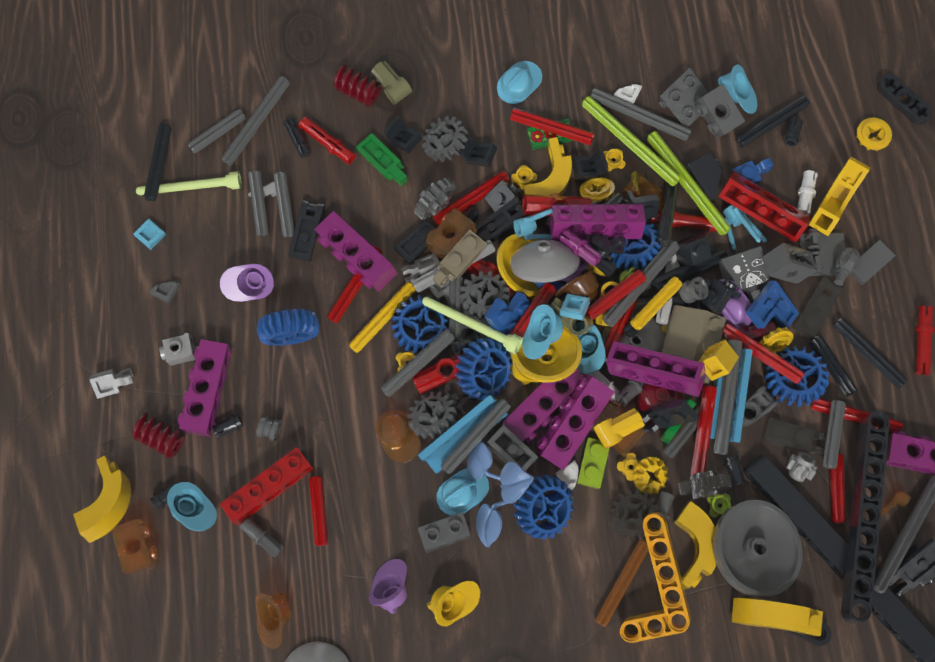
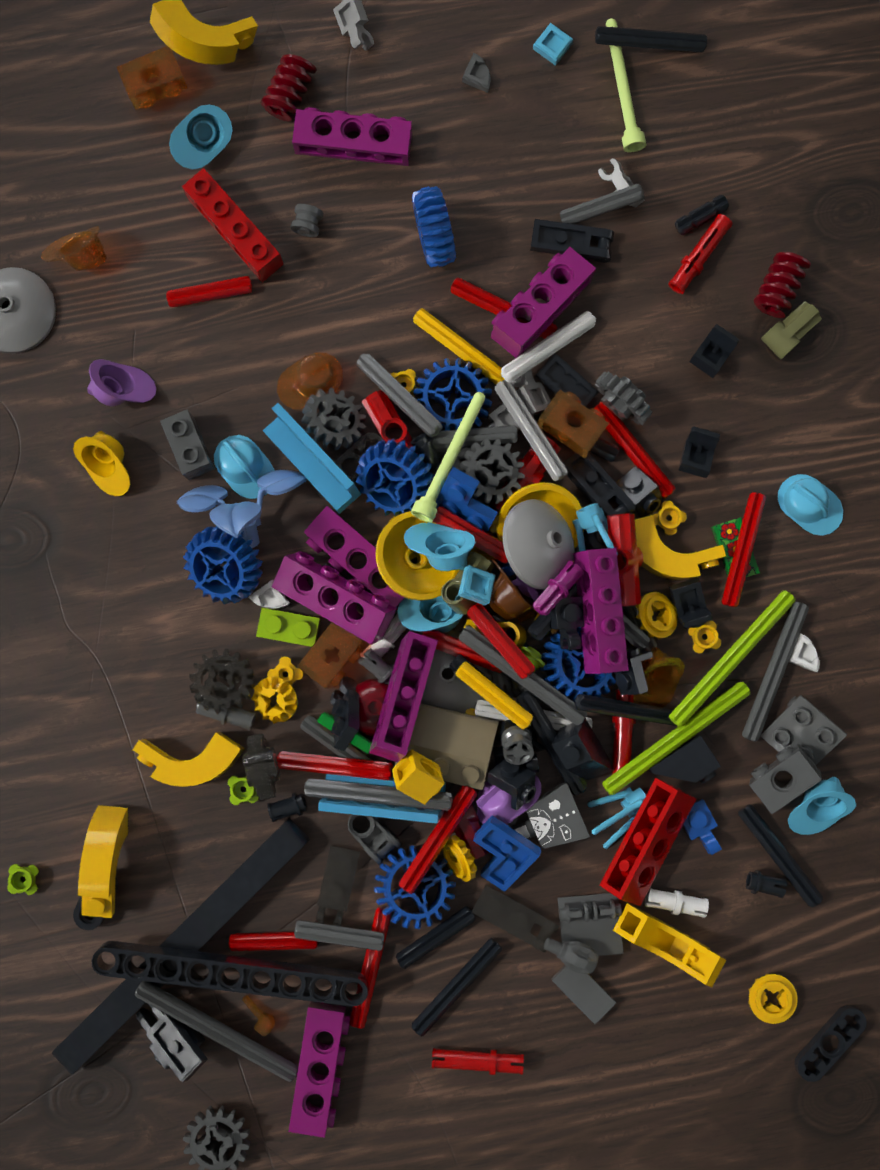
camera: 90 degrees right, 10 degrees up
(160, 498) = (212, 97): black pin -> none
(183, 354) = (404, 105): light grey brick -> none
(216, 131) = (702, 110): dark grey axle -> none
(228, 426) = (310, 175): black pin -> none
(246, 282) = (491, 170): medium lavender piece -> none
(255, 120) = (722, 158): dark grey axle -> none
(258, 203) = (601, 172): dark grey axle -> none
(261, 537) = (172, 227): dark grey axle -> none
(382, 159) = (679, 327): green hinge -> none
(389, 251) = (548, 346): none -> white axle
(444, 139) = (713, 407): dark grey gear -> none
(459, 258) = (537, 434): dark tan hinge -> none
(475, 436) = (307, 473): dark grey axle -> none
(511, 449) = (291, 521): dark grey brick -> none
(612, 431) = (322, 646): yellow piece -> none
(622, 583) = (139, 669): dark orange axle -> none
(665, 584) = (133, 716): light orange beam -> none
(757, 548) = (186, 835): dark grey dish -> none
(789, 263) = (566, 876): dark grey brick -> none
(801, 467) = (295, 893): light grey gear -> none

